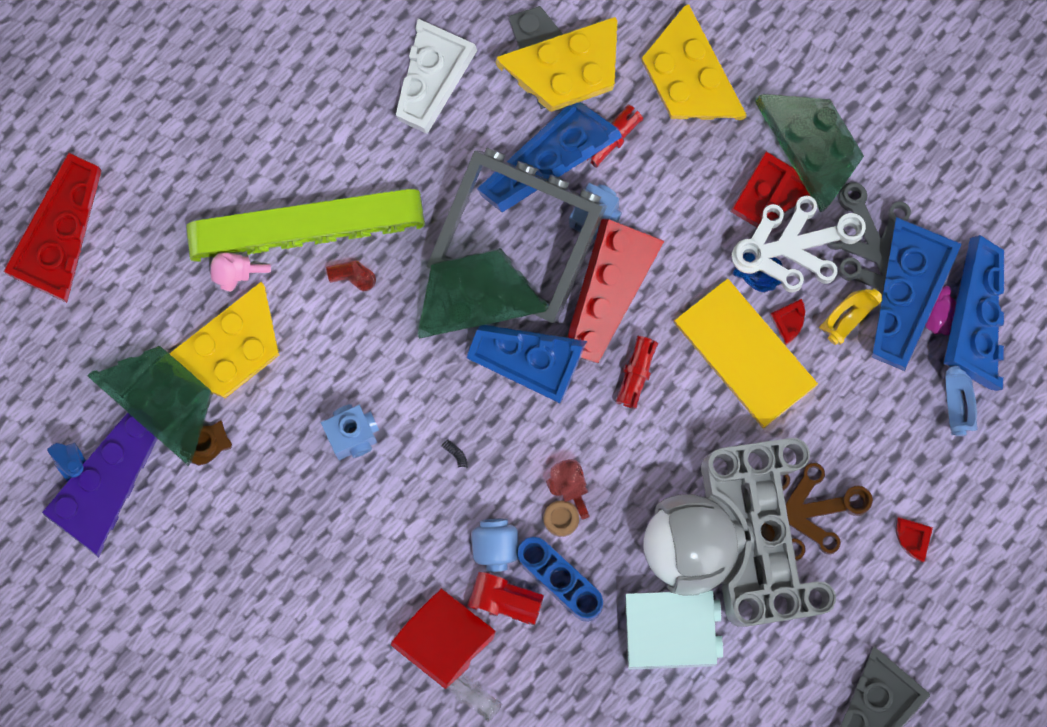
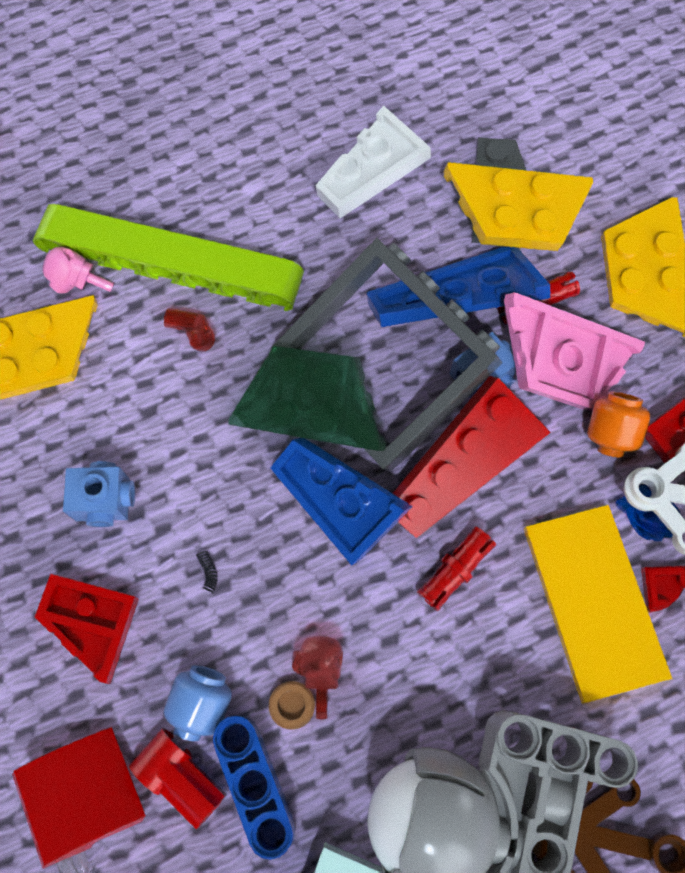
camera: 20 degrees right, 5 degrees down
(387, 525) = (88, 622): none -> red wing
(652, 177) = (564, 353): none -> bright pink wing
(711, 214) = (618, 424): none -> orange head

